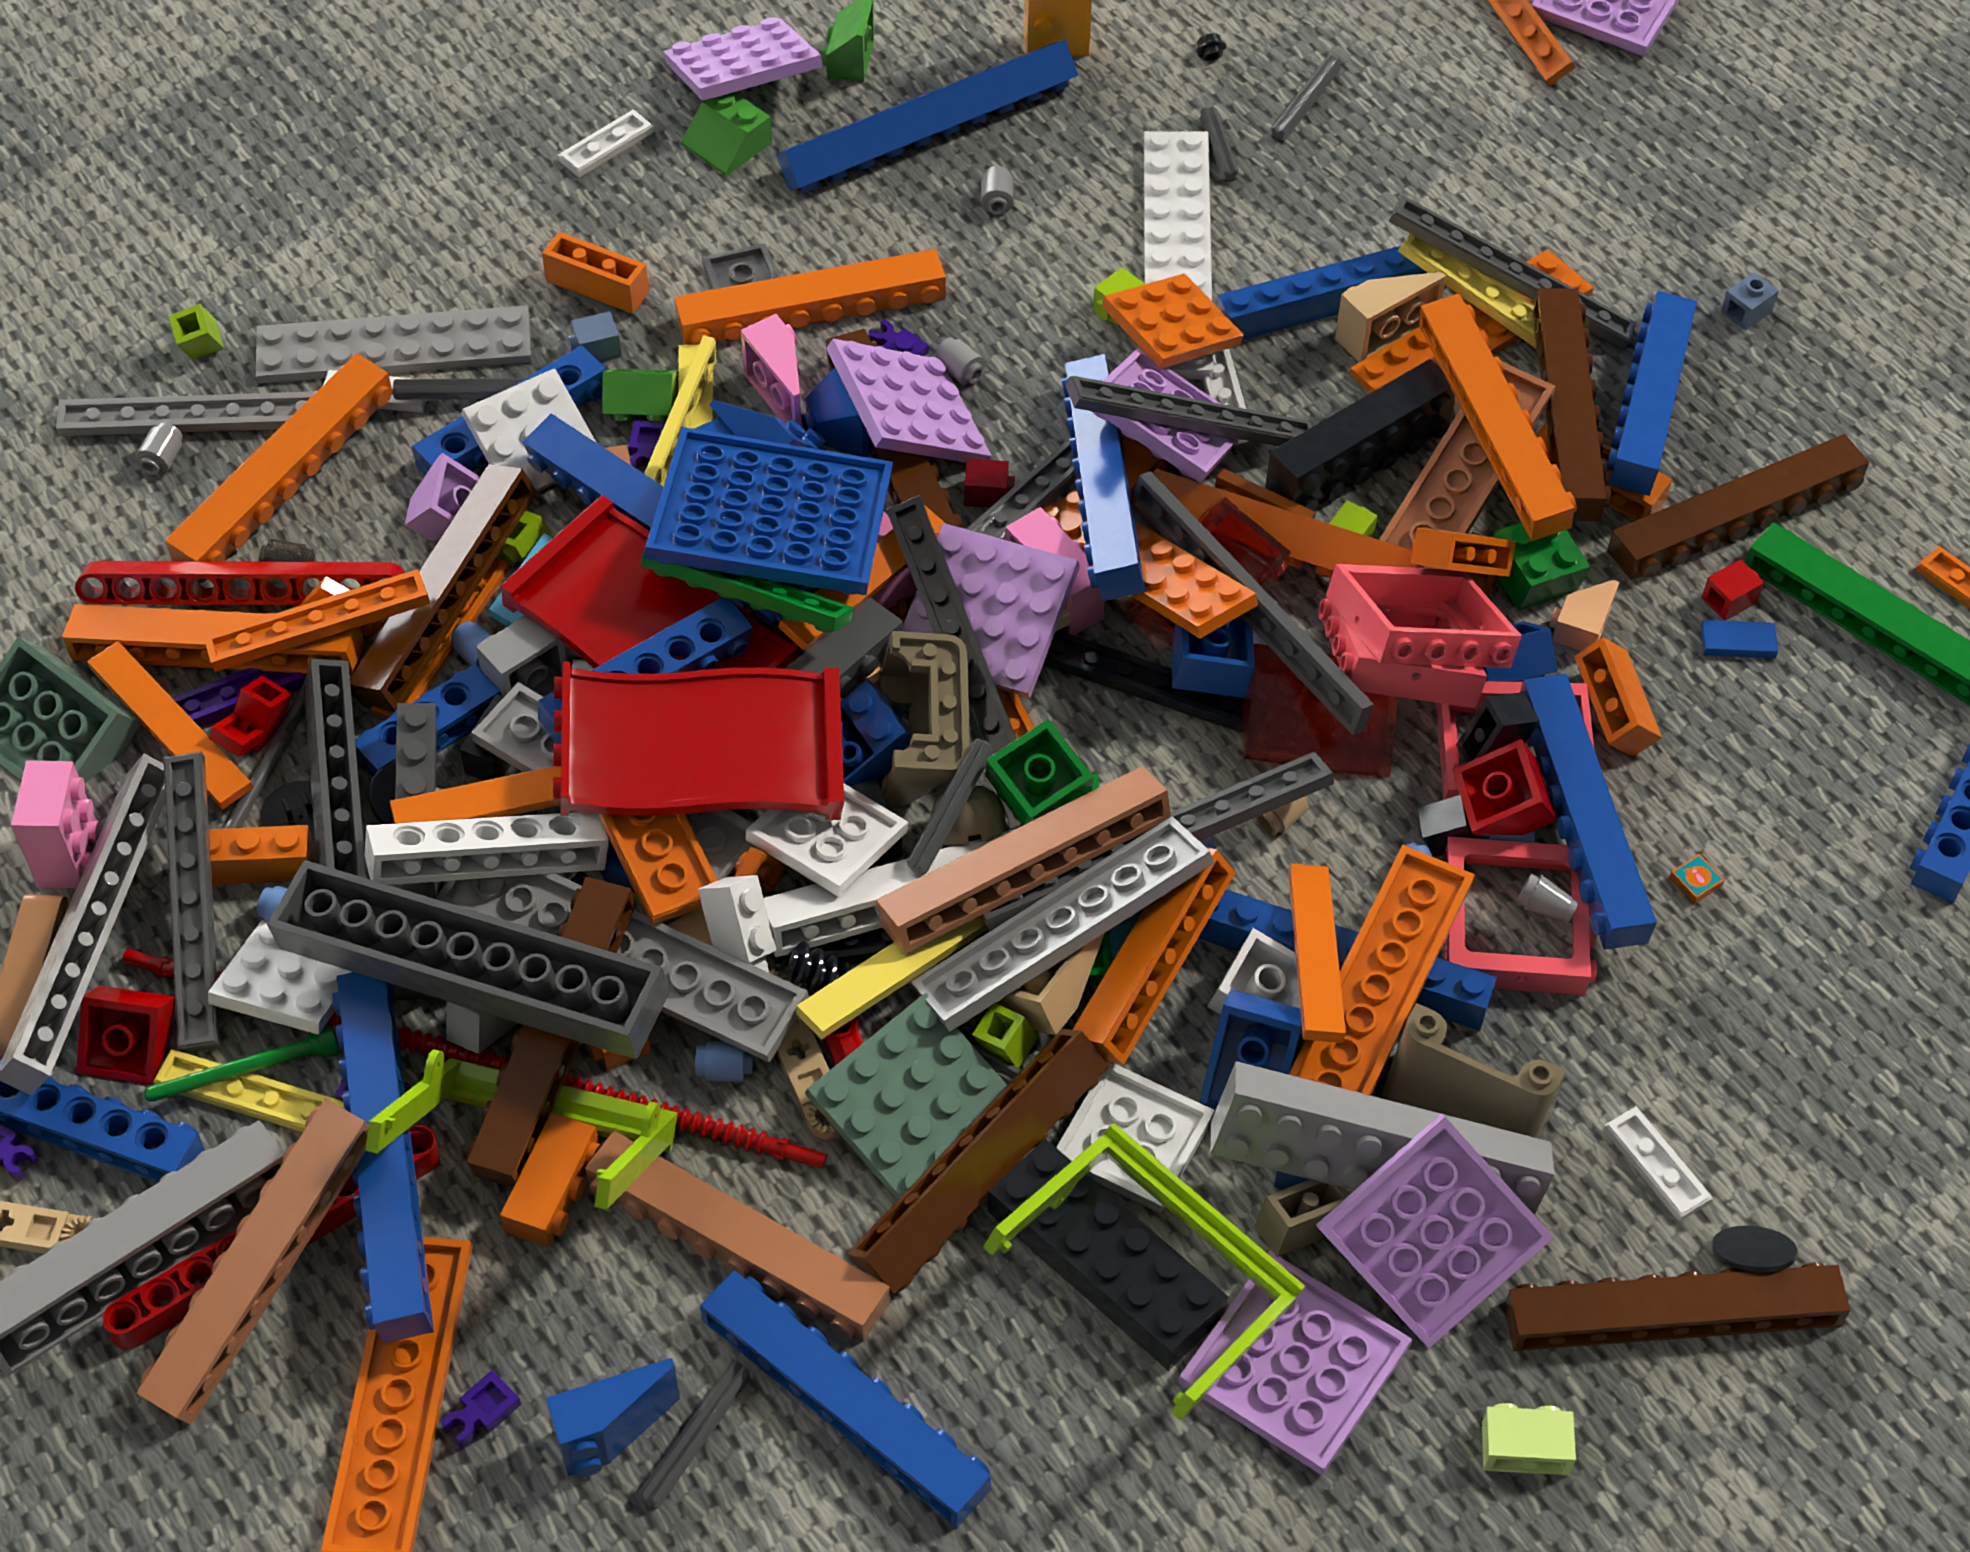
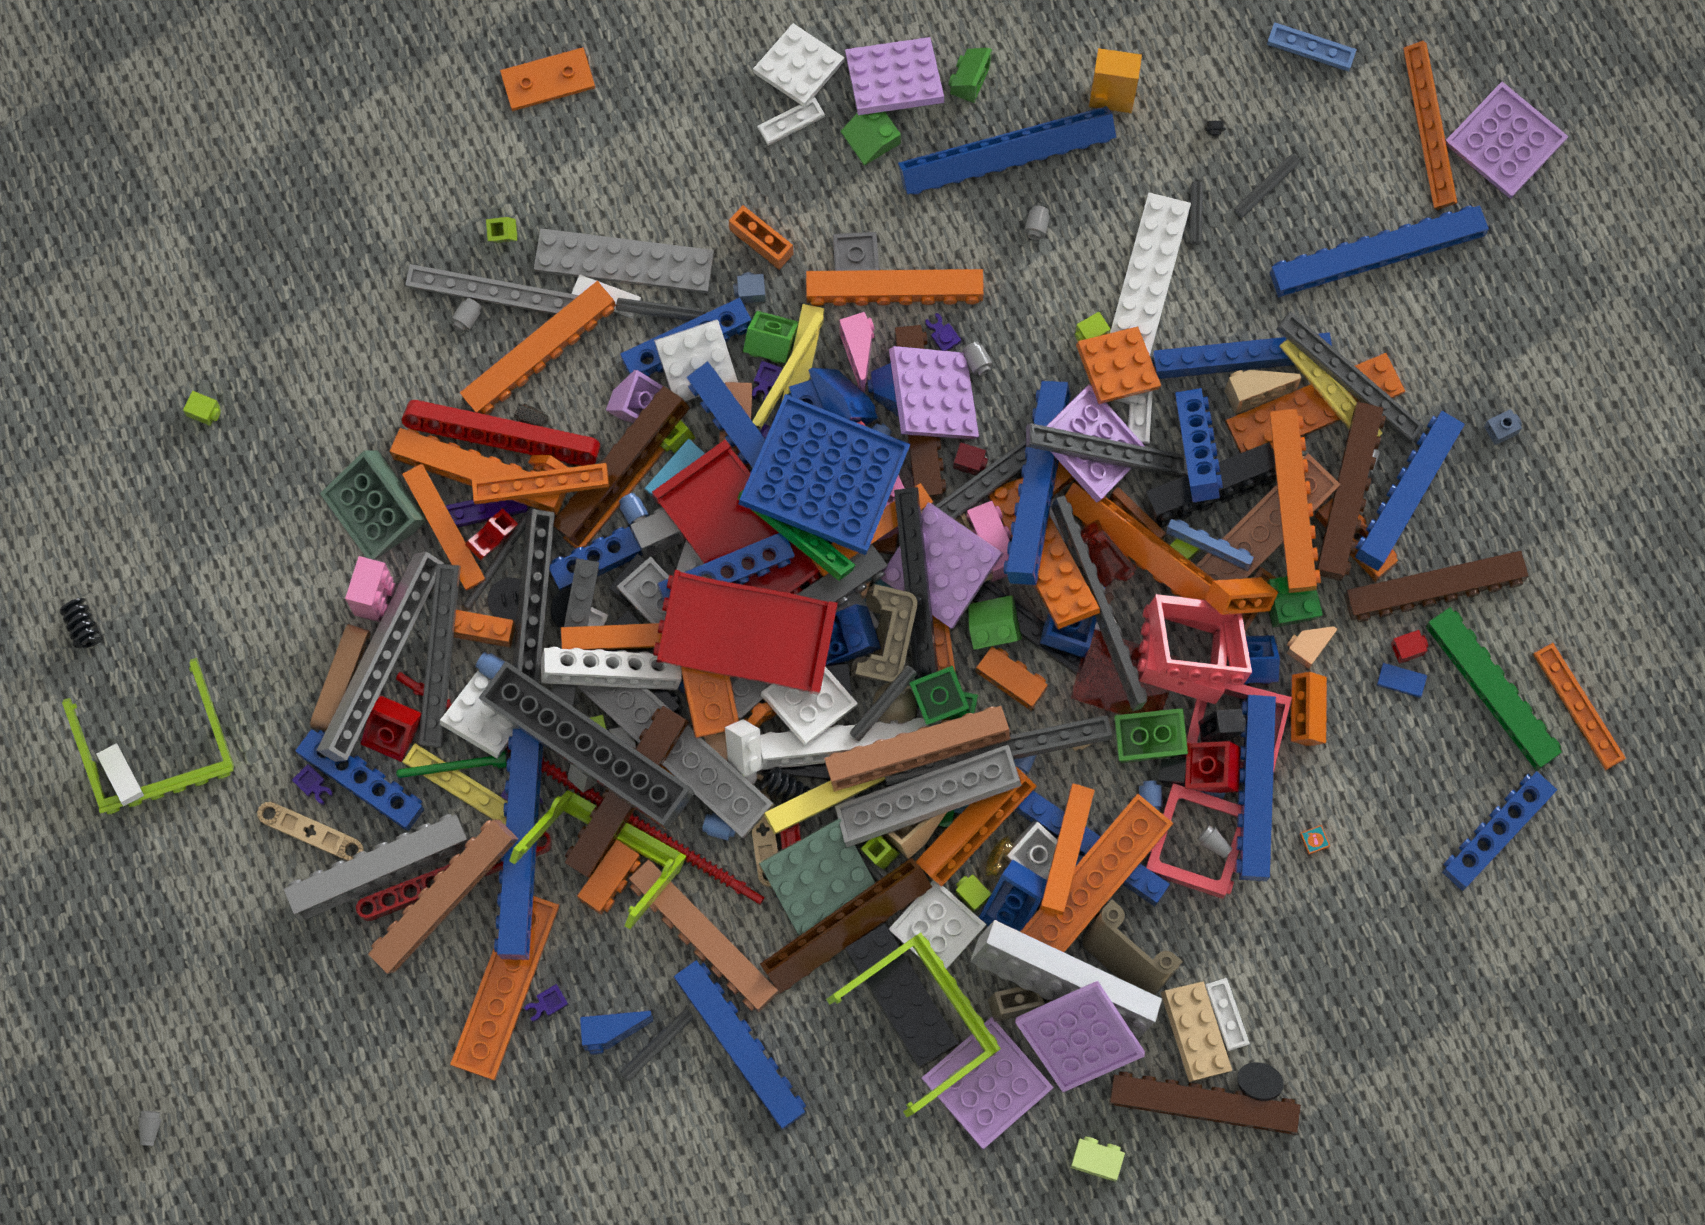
camera: 15 degrees right, 20 degrees up
(234, 156) = (547, 79): none -> orange plate
(601, 78) = (798, 65): none -> white plate
(1093, 680) = (993, 622): none -> bright green slope
(1126, 744) = (1012, 677): none -> orange brick
(1177, 1066) = (972, 892): none -> lime brick
(1198, 1008) = (993, 861): none -> clear yellow dish
(1327, 383) = (1198, 445): none -> blue brick
(1388, 505) = (1203, 541): none -> medium blue plate
(1390, 776) = (1151, 735): none -> bright green slope
(1489, 138) = (1379, 250): none -> blue brick
(1621, 1197) = (1196, 1031): none -> tan plate

